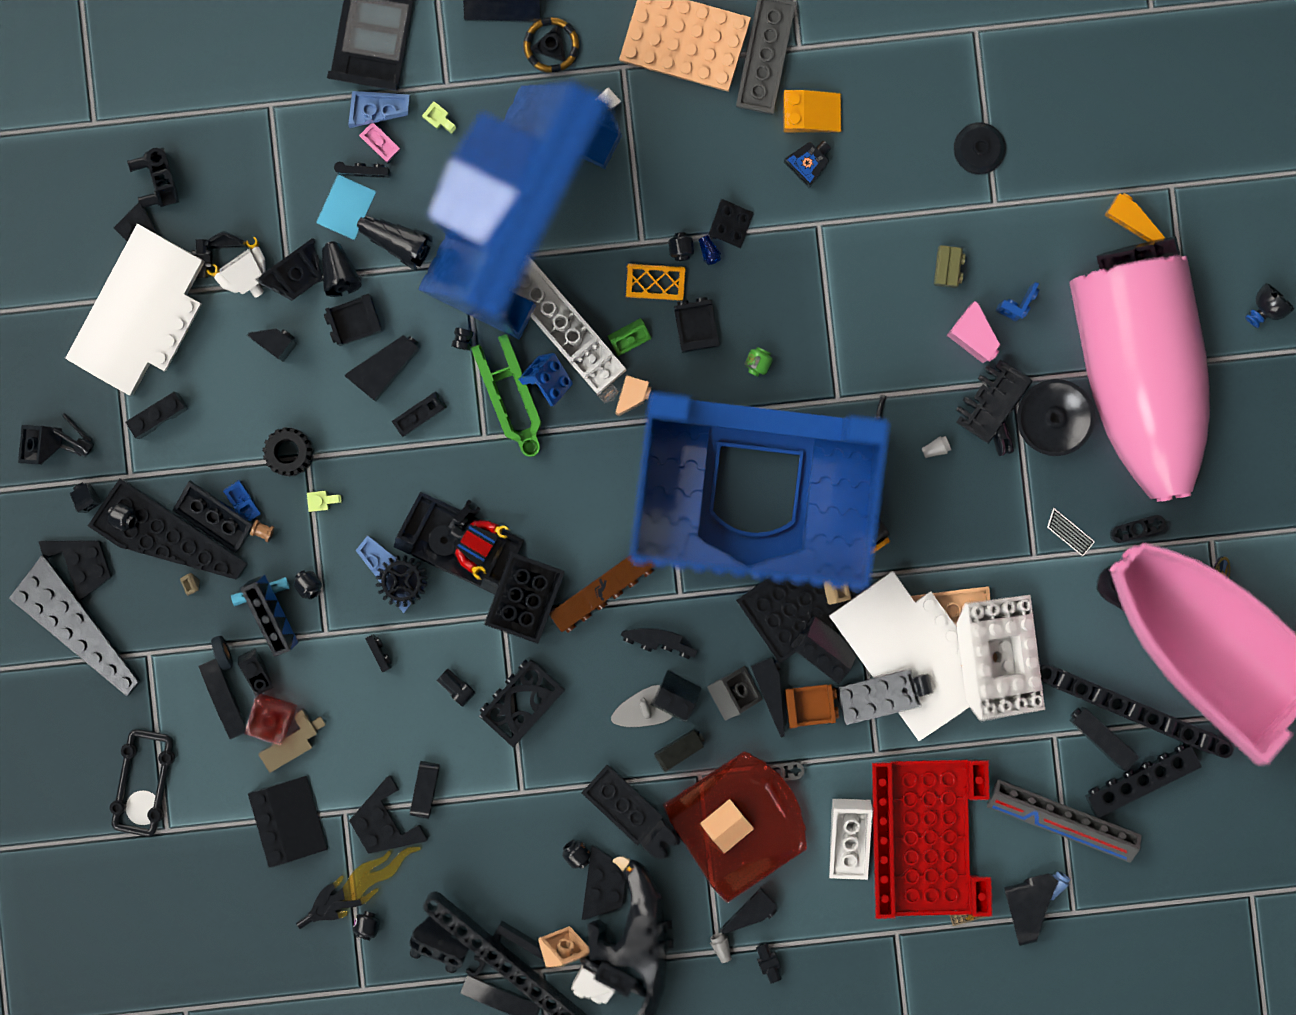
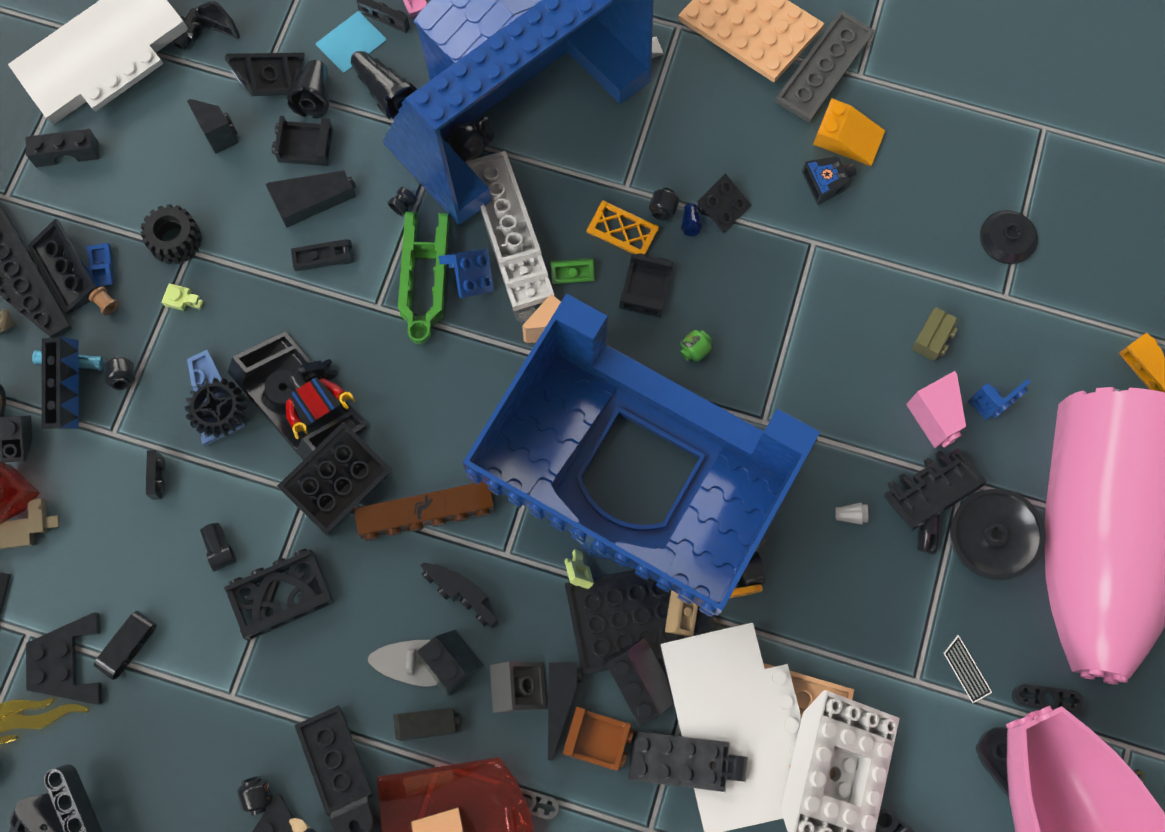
camera: 20 degrees right, 15 degrees down
(242, 271) = (210, 52): white torso -> none
(743, 588) = (578, 572): none -> yellowish green plate

